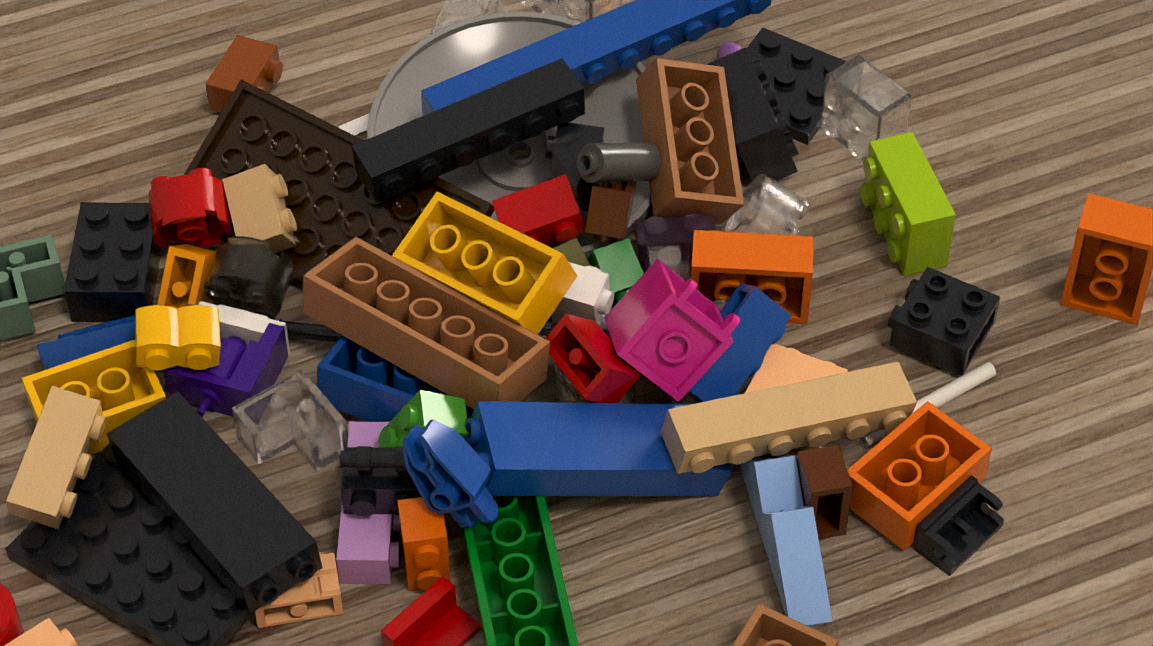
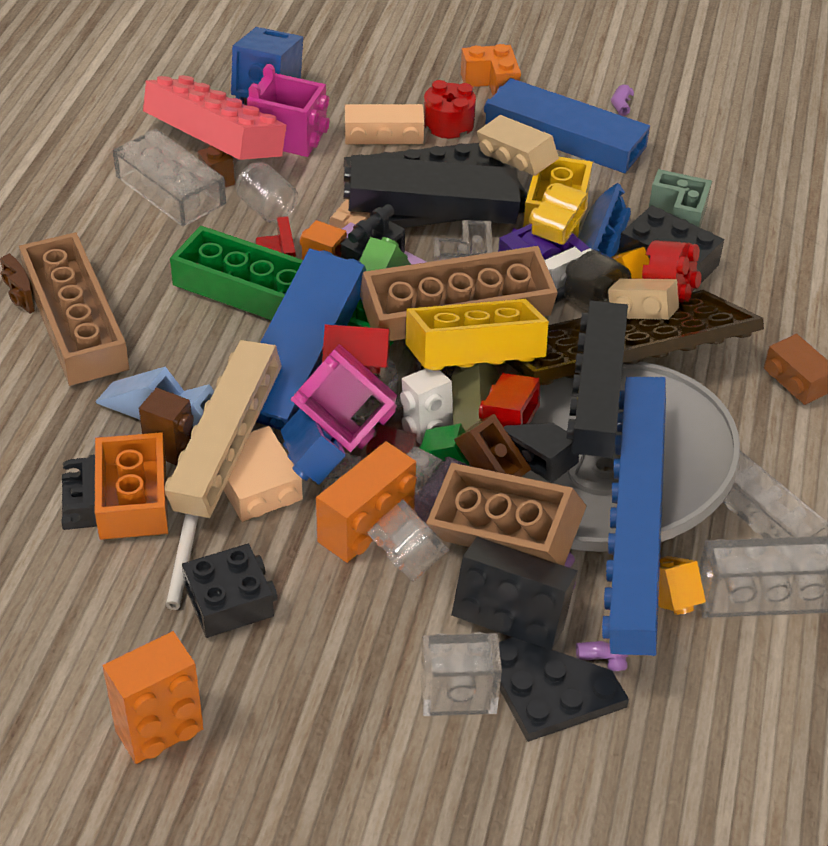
camera: 125 degrees right, 5 degrees down
(449, 474) = (328, 228): blue hinge -> none
(618, 162) = (508, 440): dark grey brick -> none
(907, 204) = (343, 633): lime brick -> none

